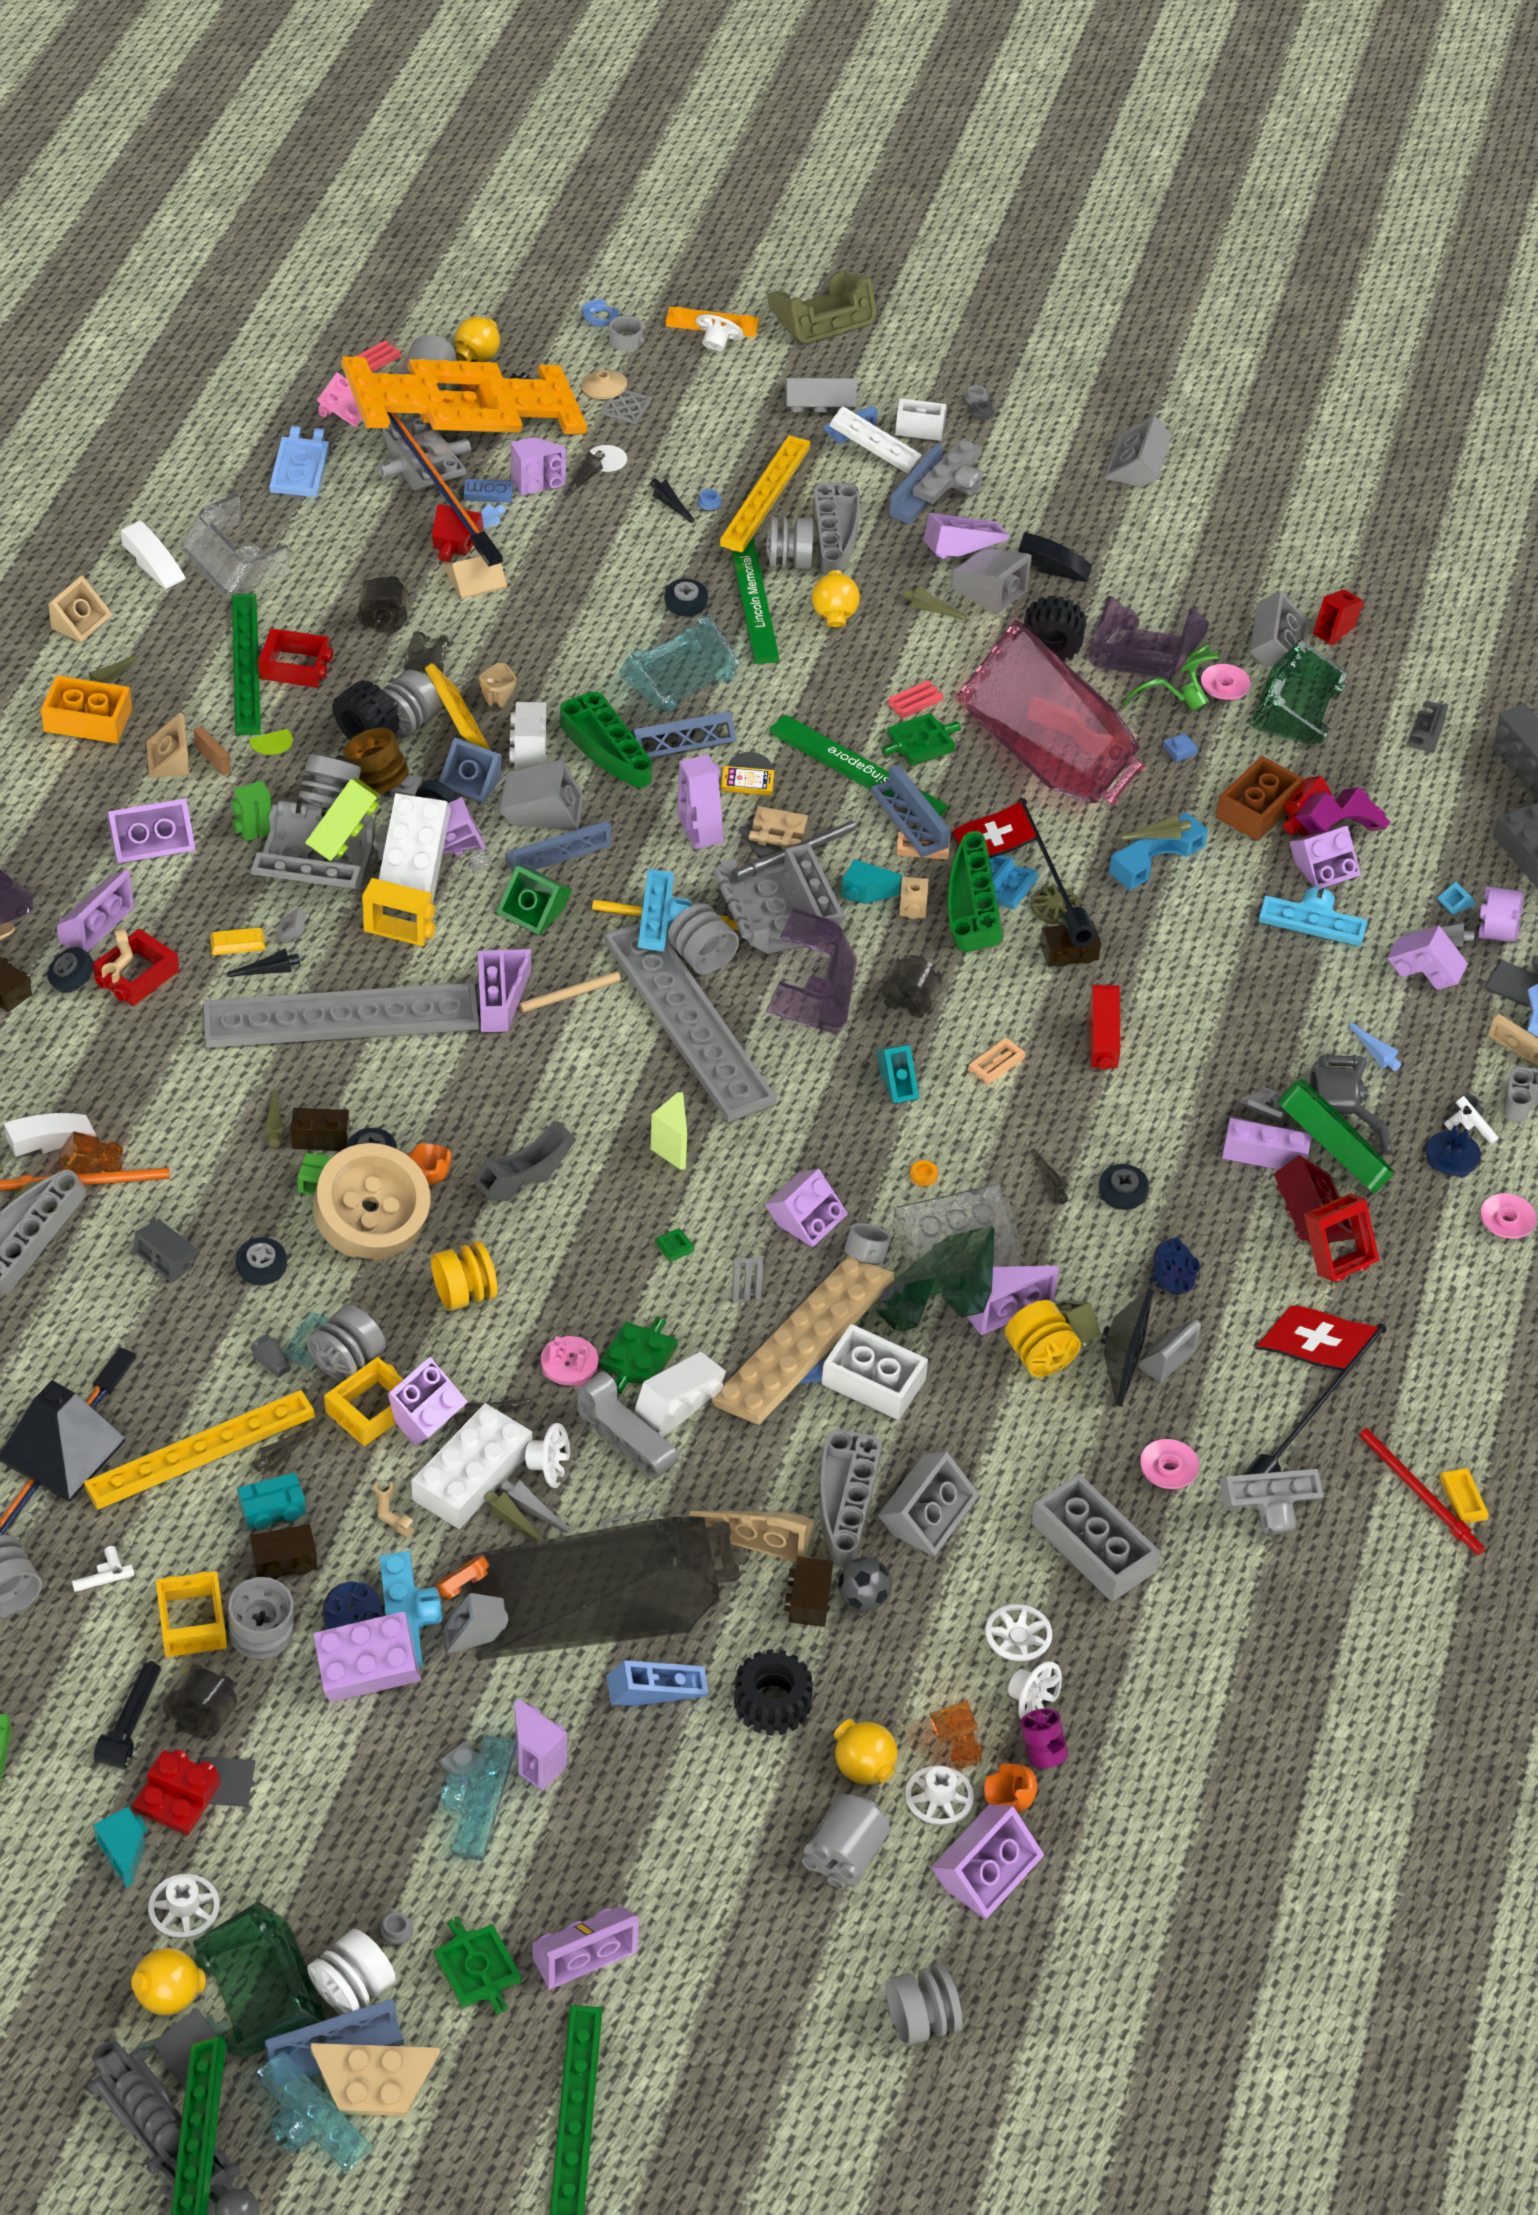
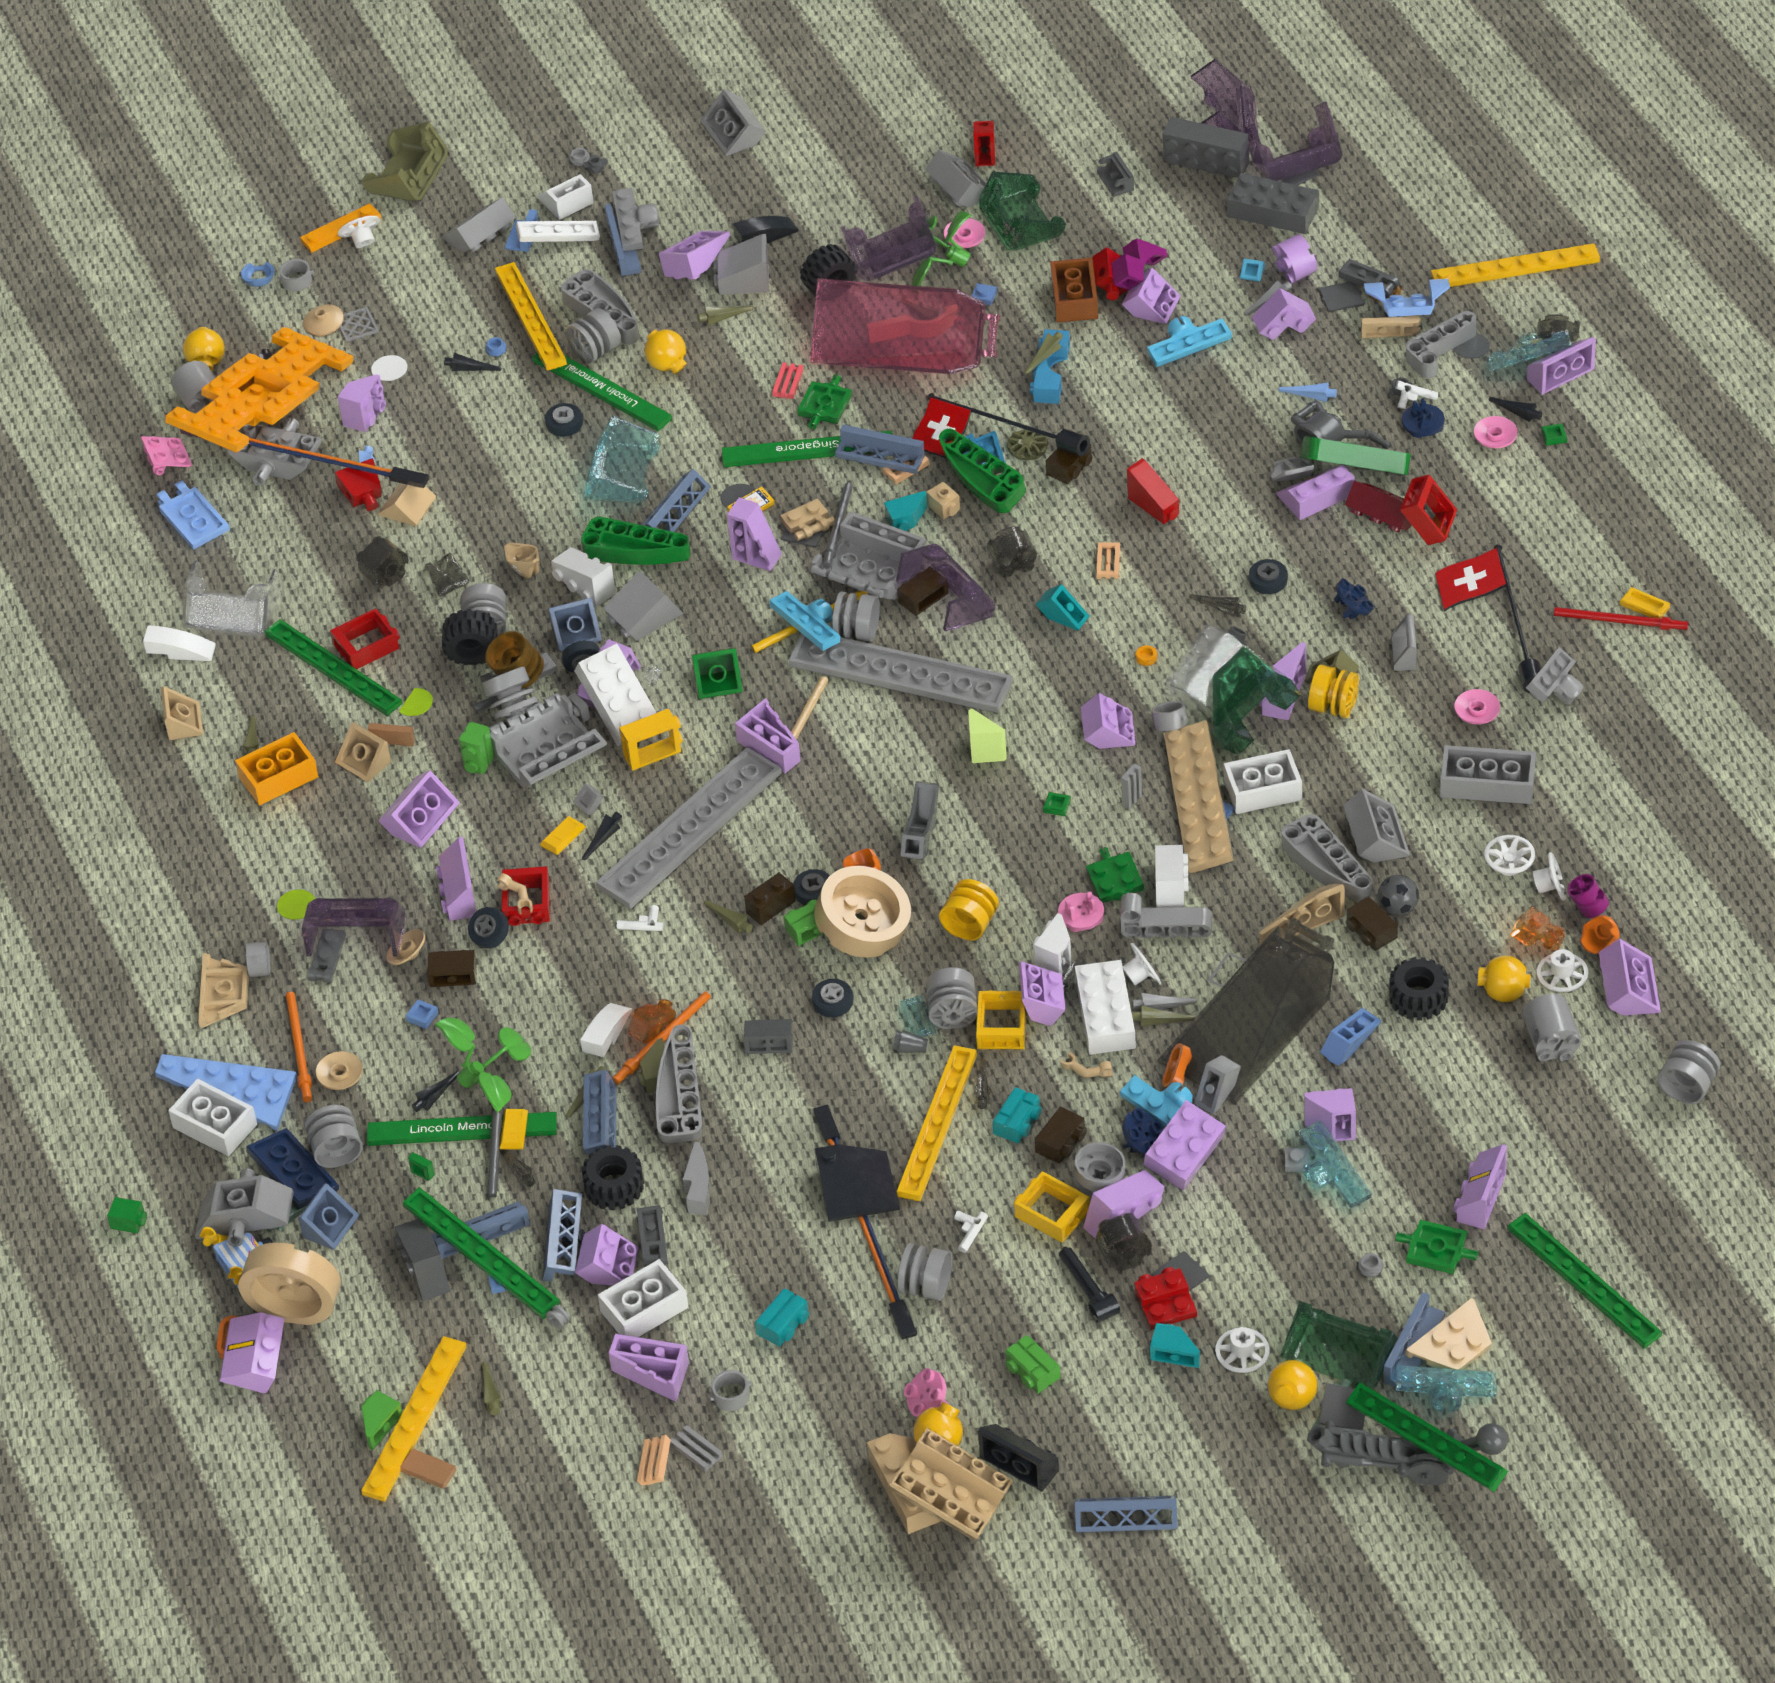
camera: 35 degrees left, 0 degrees up
(202, 1068) = (644, 922): none -> white hose
(255, 1663) = (1131, 1195): none -> lavender wedge
(344, 819) = (554, 705): wedge -> none
(351, 1973) = (1384, 1299): white wheel -> none
(375, 355) = (145, 399): coral tile -> none
(456, 707) = (521, 592): yellow tile -> none
(488, 490) = (342, 443): medium blue tile -> none
(491, 1371) = (1053, 946): none -> white slope
(561, 847) = (689, 630): sand blue fence -> none
(590, 466) = (389, 379): clear smoke piece -> none
(794, 962) = (922, 591): none -> dark brown piece
(1025, 1218) = (1238, 633): none -> dark grey plate
(1124, 1343) = (1385, 657): black slope -> none

